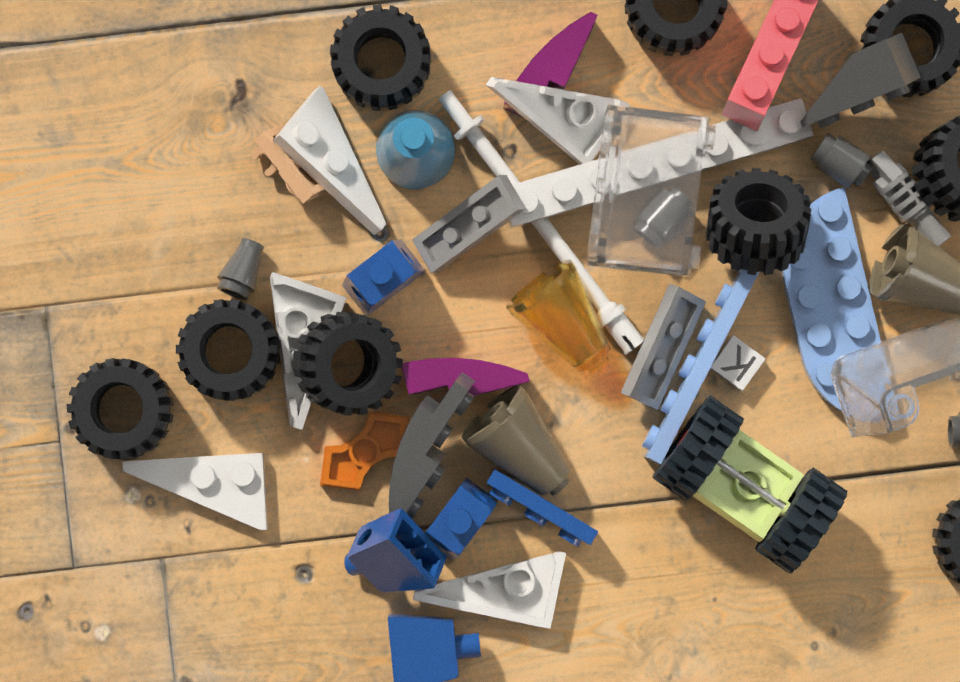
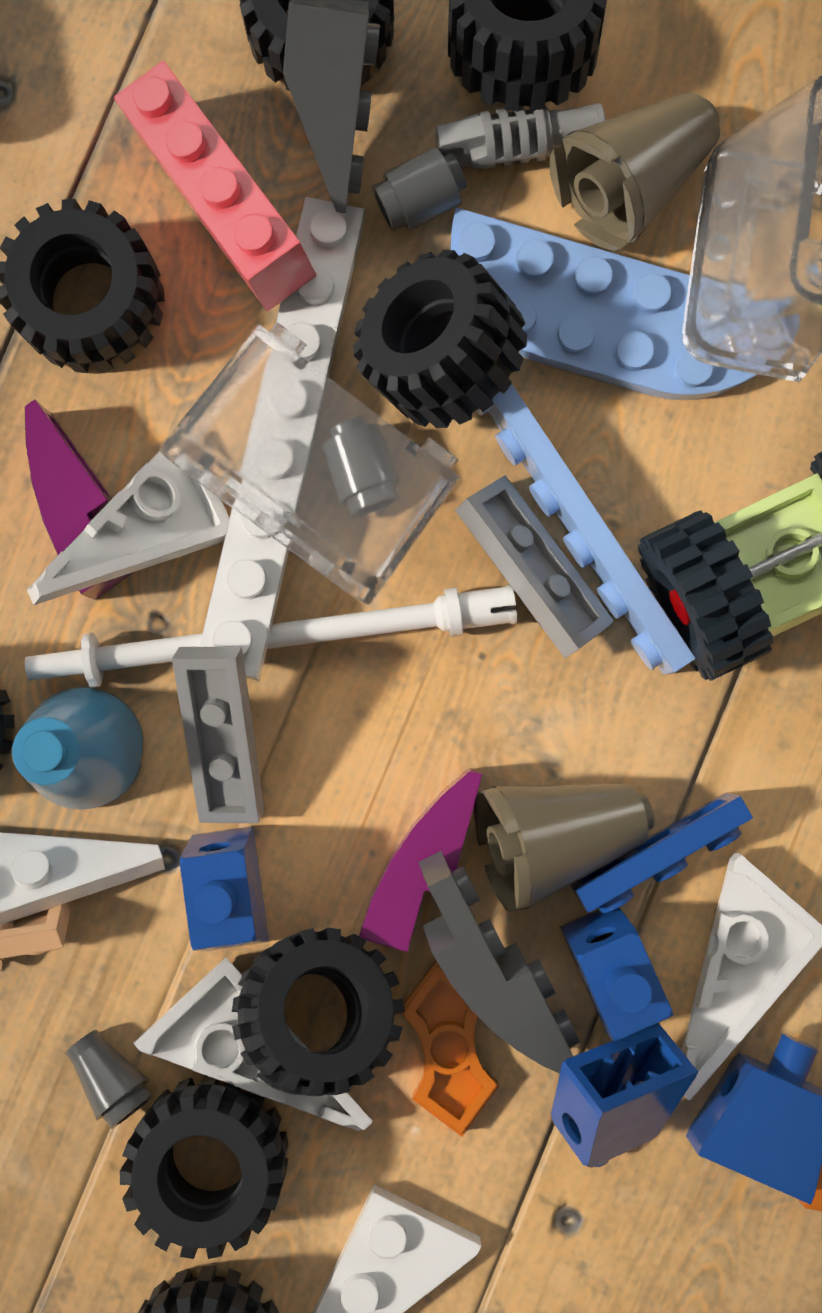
camera: 55 degrees left, 0 degrees up
(563, 317) = (420, 678): clear yellow cone -> none
(737, 363) = (611, 478): white tile -> none

